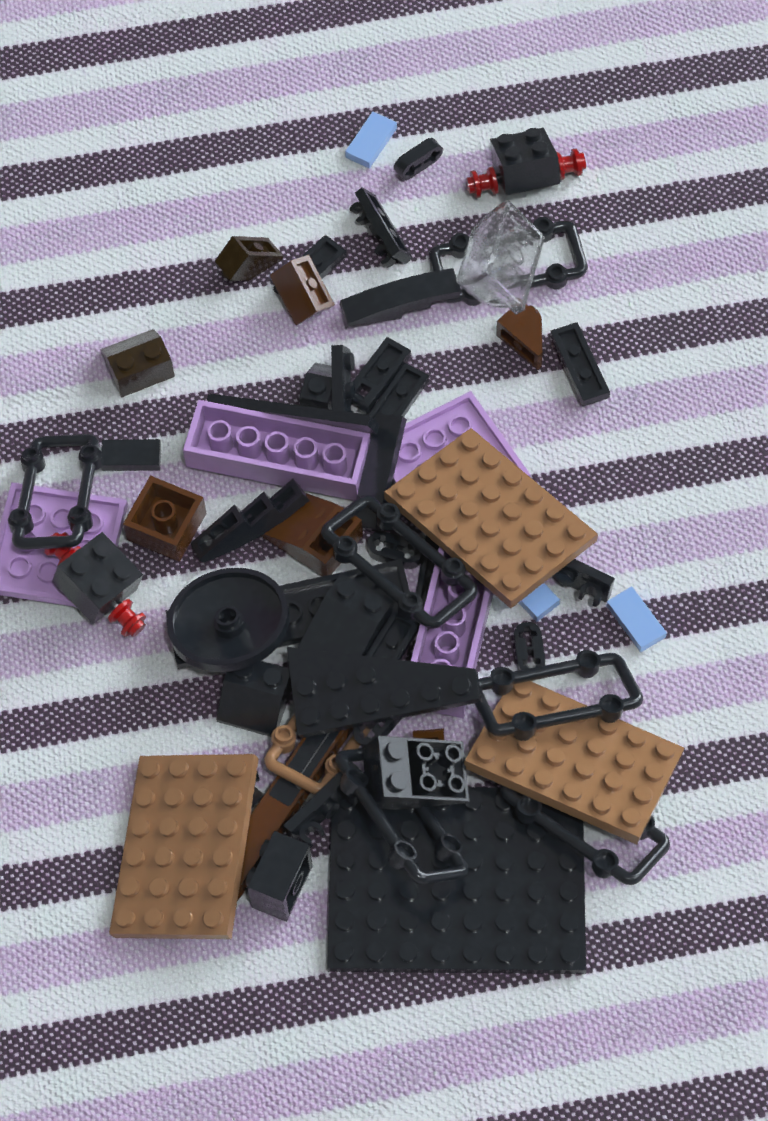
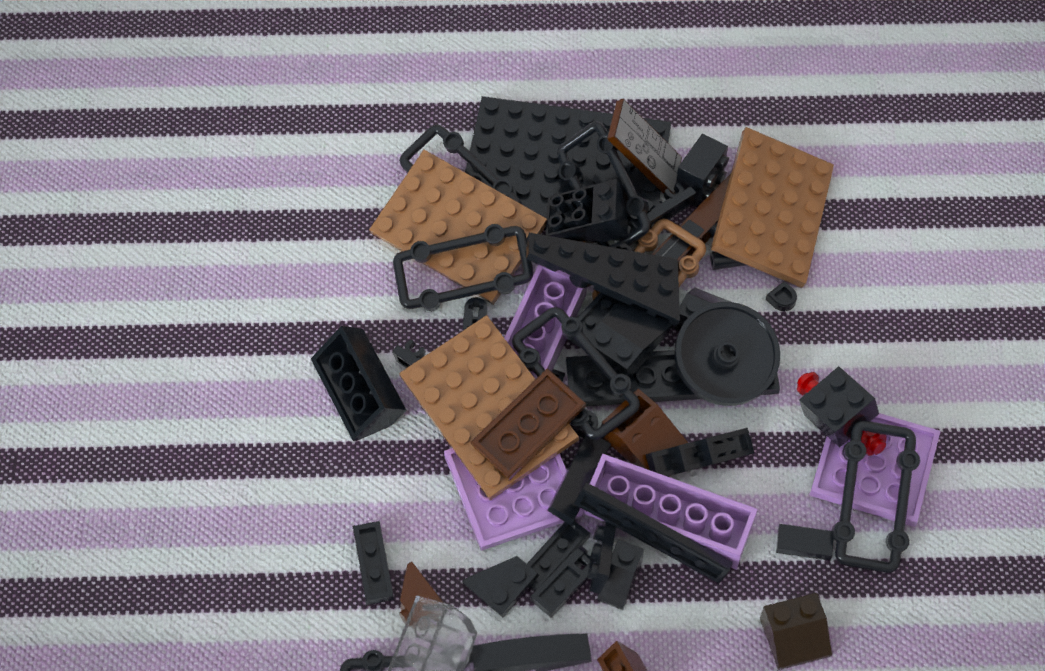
camera: 175 degrees left, 5 degrees down
(164, 518) = (776, 463): reddish brown brick -> none
(167, 738) = (782, 297): none -> black tile
(355, 878) = (644, 147): none -> light grey tile
(440, 488) = (528, 424): none -> reddish brown tile
(441, 361) = (502, 584): none -> black wing
(636, 619) = (379, 333): light blue tile -> none
(645, 550) = (357, 383): none -> black slope

